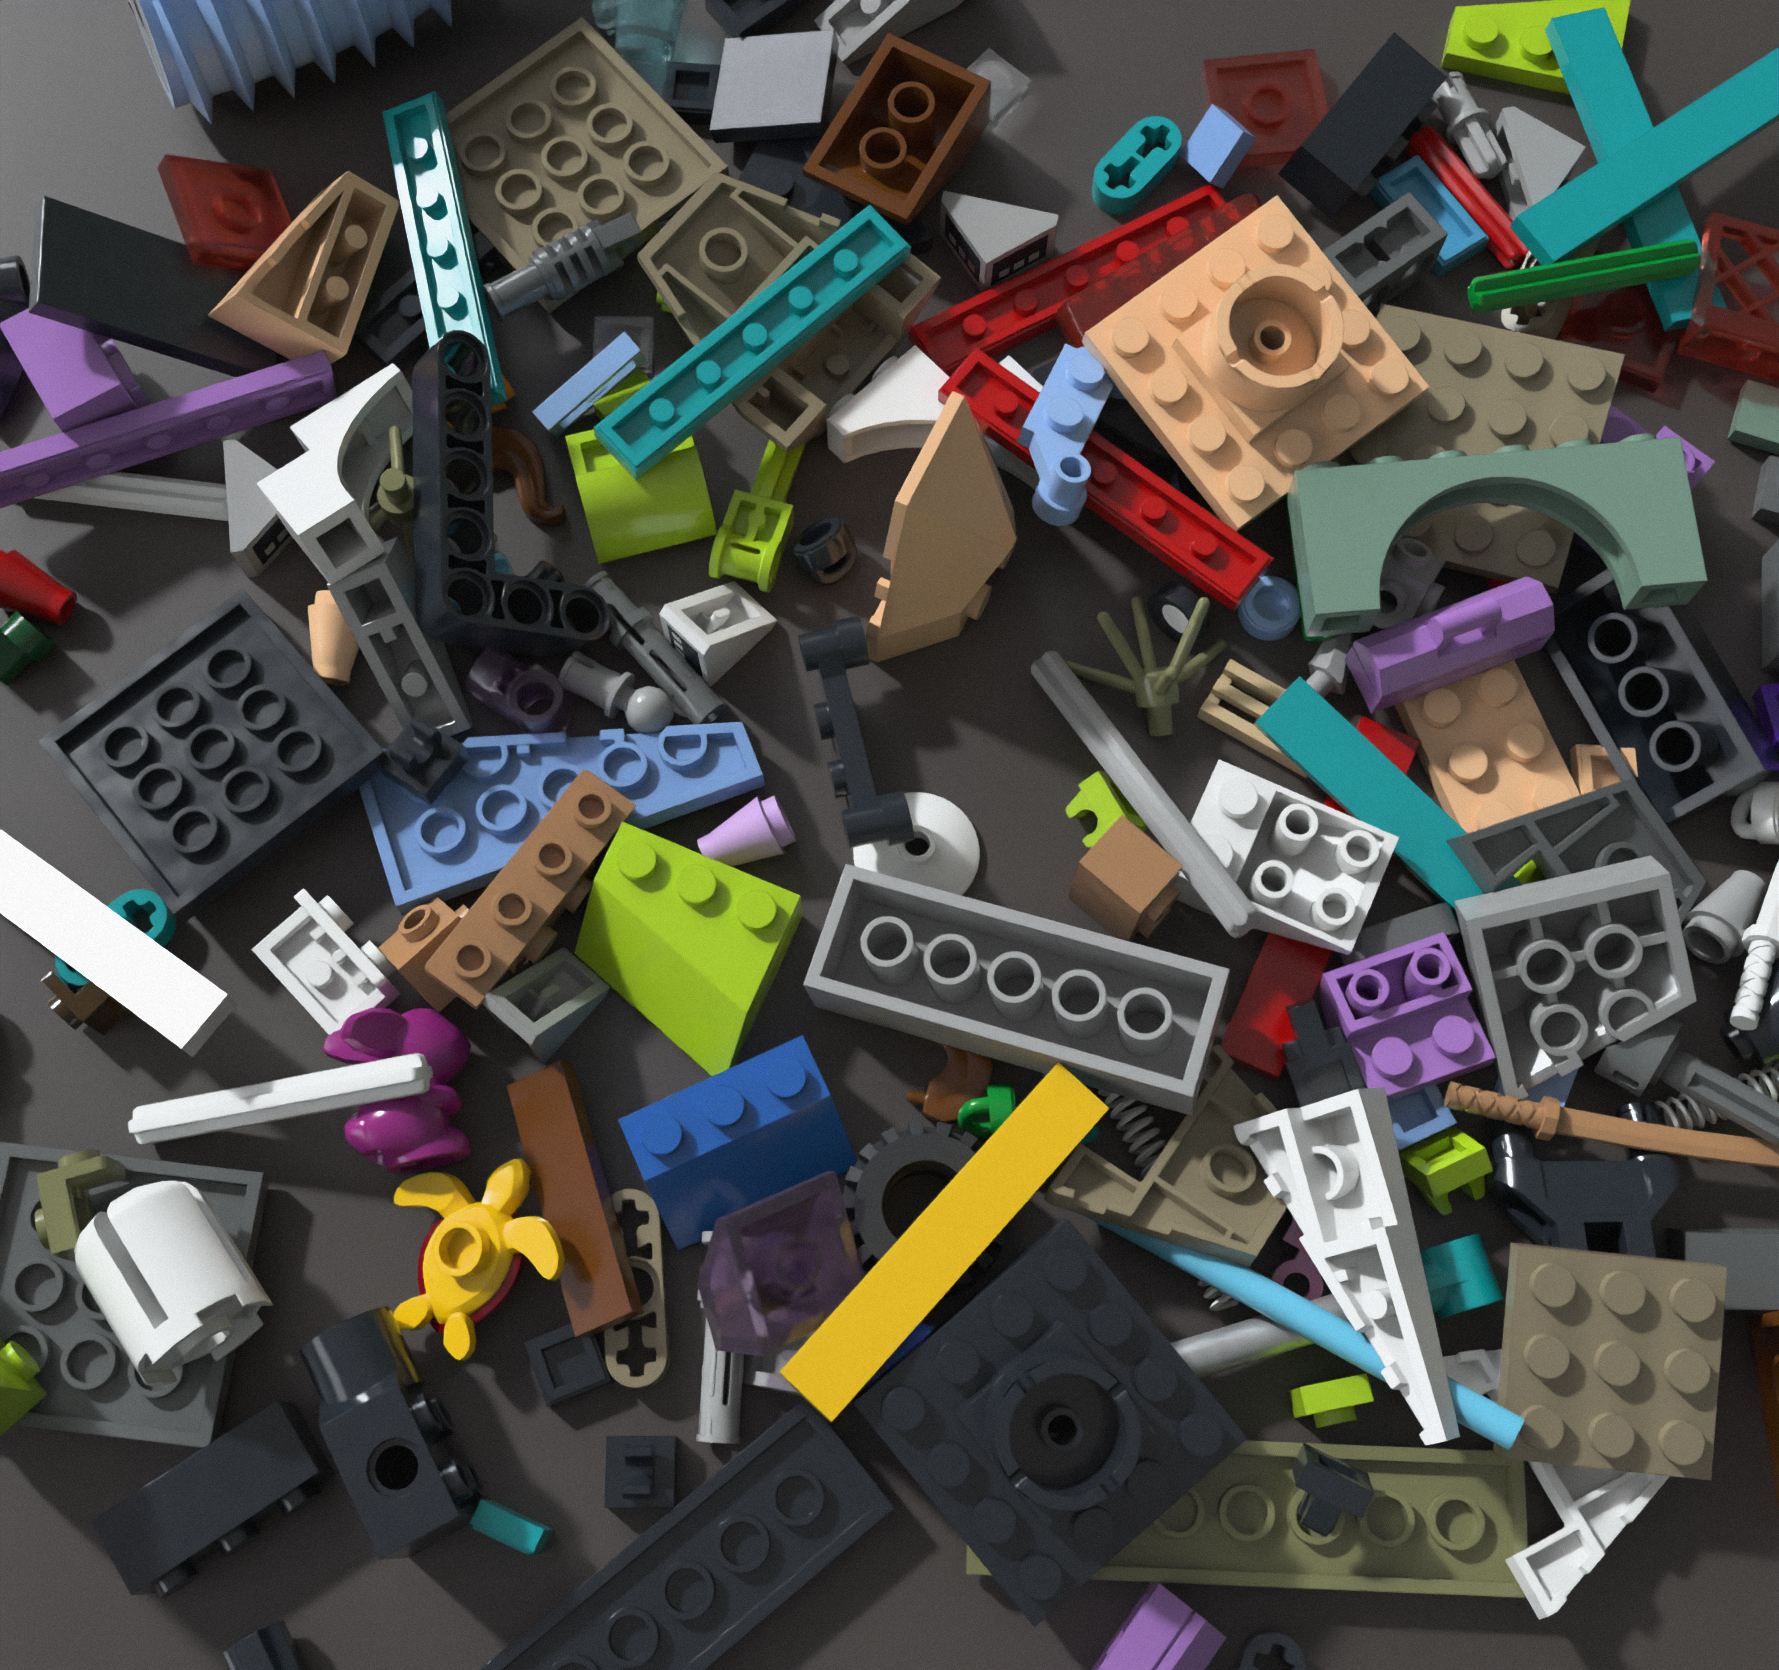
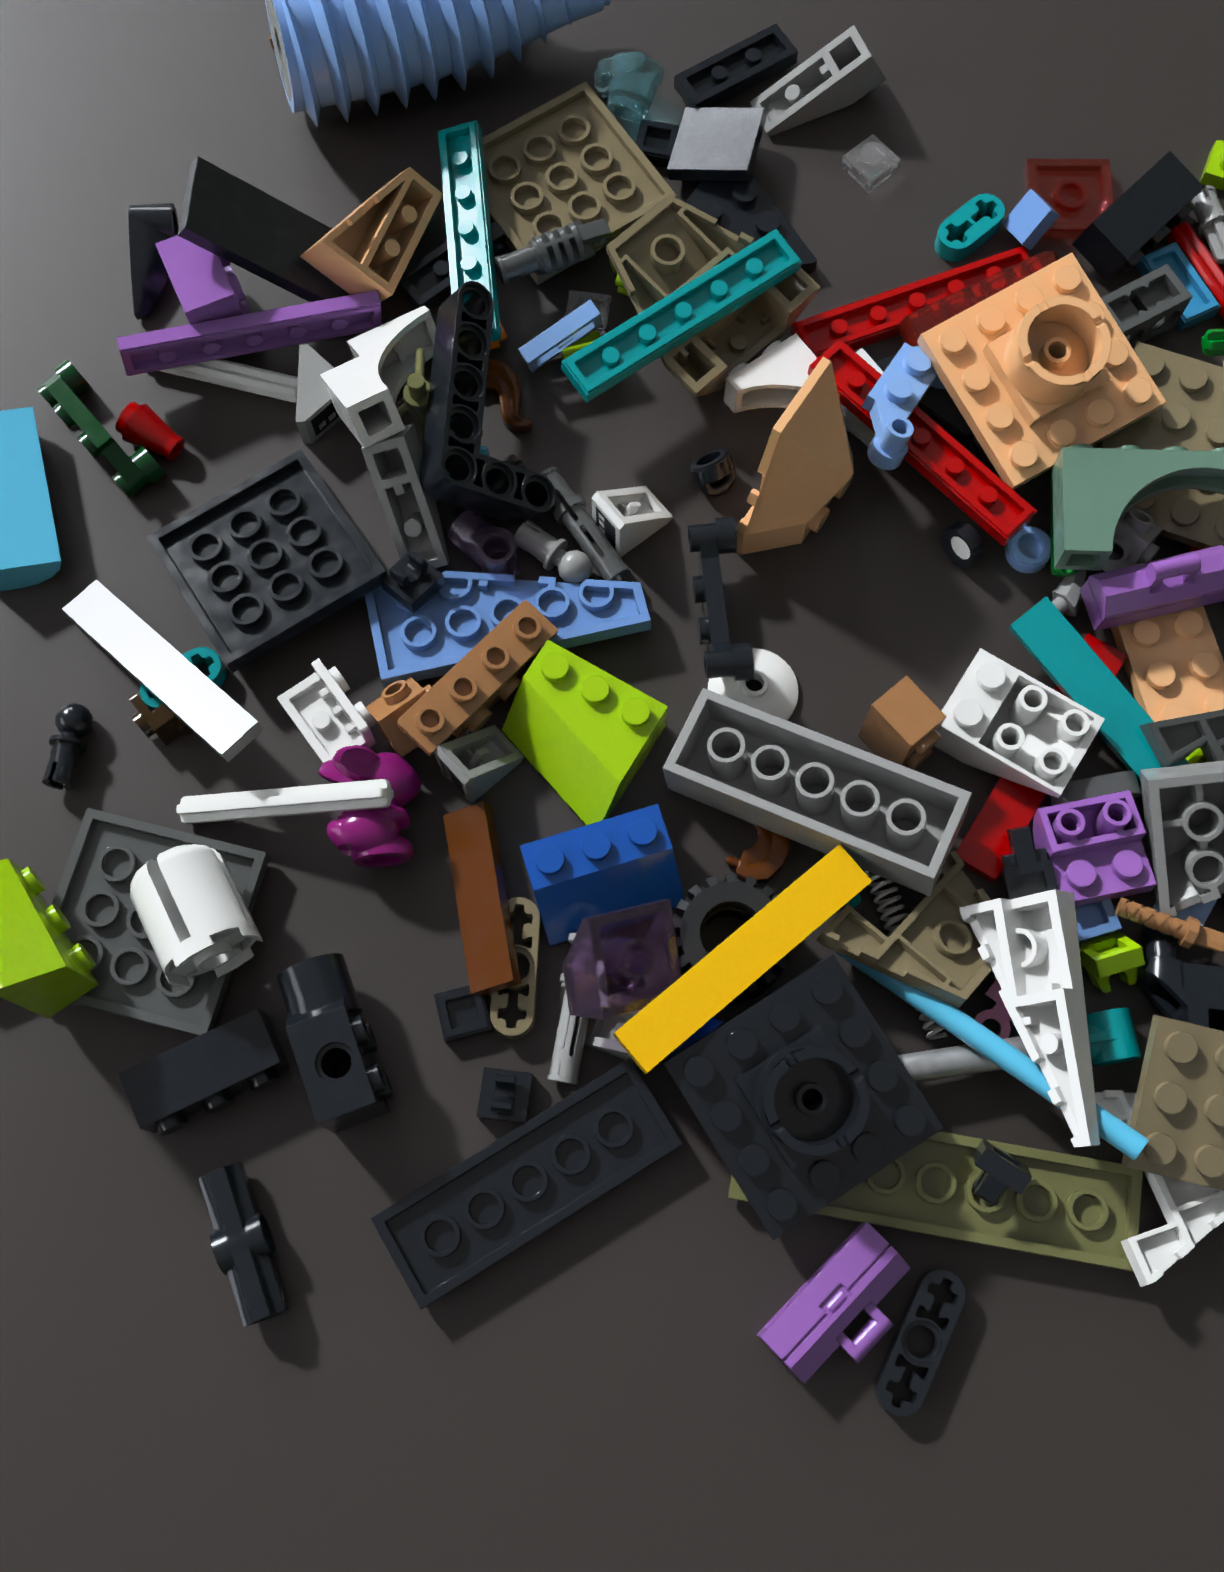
camera: 10 degrees right, 0 degrees up
(67, 1198) = (128, 850): olive bracket -> none
(224, 210) = (319, 186): clear red tile -> none
(331, 640) = (358, 491): light nougat cone -> none
(473, 1251) = (406, 925): yellow animal -> none
(511, 1527) = (409, 1120): teal tile -> none
(642, 514) = (591, 428): lime brick -> none
(750, 834) = (637, 661): lavender cone -> none
(758, 523) = (668, 445): lime connector -> none
(902, 130) = (805, 182): reddish brown slope -> none
(995, 238) = (862, 266): light grey slope -> none
(999, 1105) = (790, 871): green tile -> none
(1106, 801) = (893, 665): lime tile -> none
(1146, 795) = (925, 667): light grey axle -> none
(1153, 686) = (939, 593): olive plant -> none
(1234, 725) = (1007, 608): tan tile -> none
(1331, 1400) = (1007, 1111): lime plate -> none

